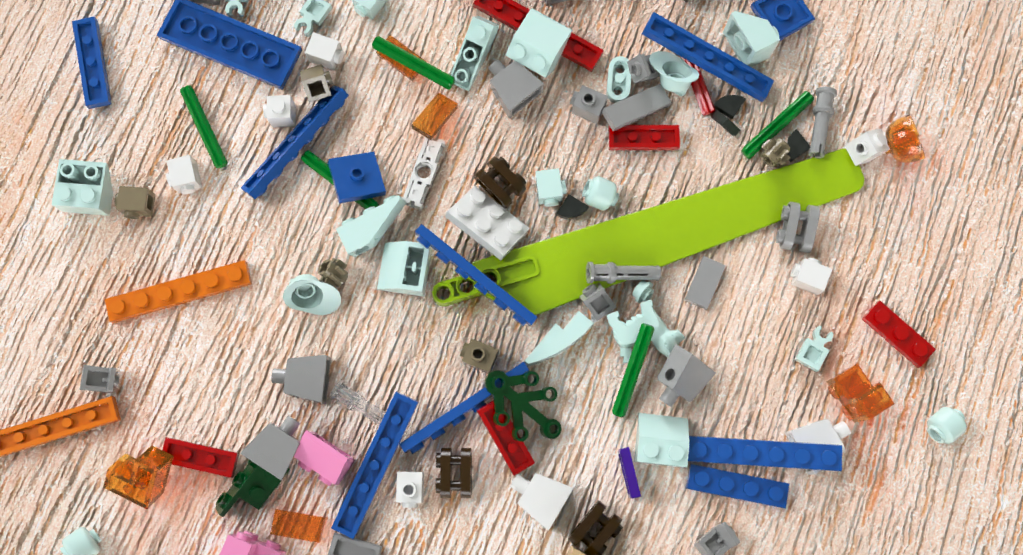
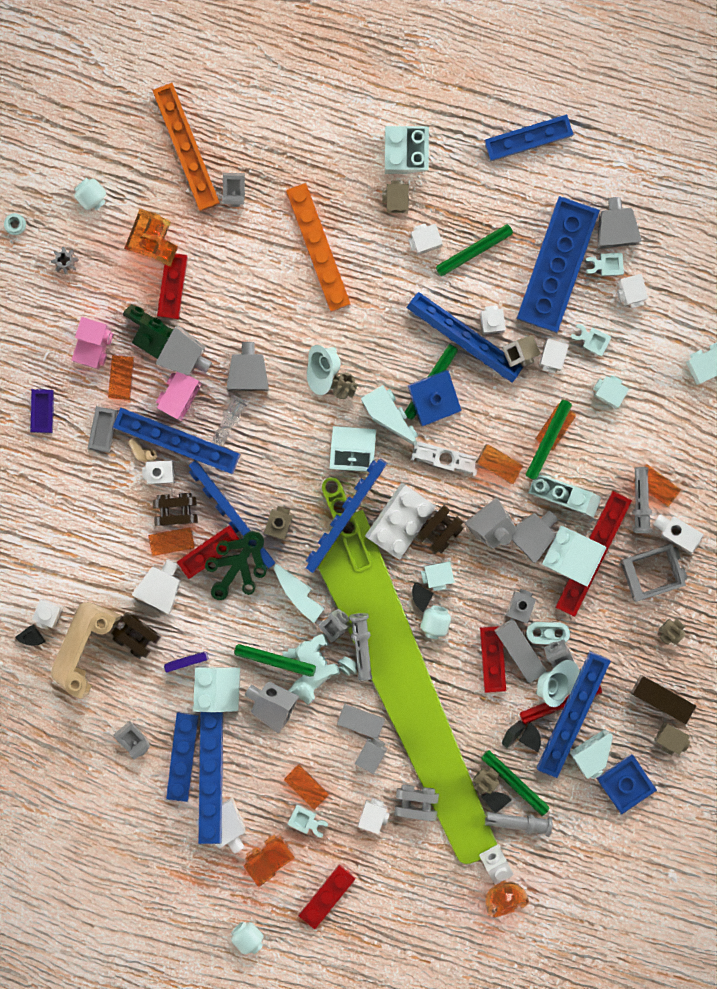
camera: 85 degrees right, 10 degrees up
(386, 508) = (141, 453): none -> tan arm
(490, 480) = (171, 541): none -> clear orange tile
(500, 124) = (492, 525): none -> light grey torso
(743, 271) = (371, 755): none -> light grey brick
(775, 348) = (306, 786): none -> clear orange tile

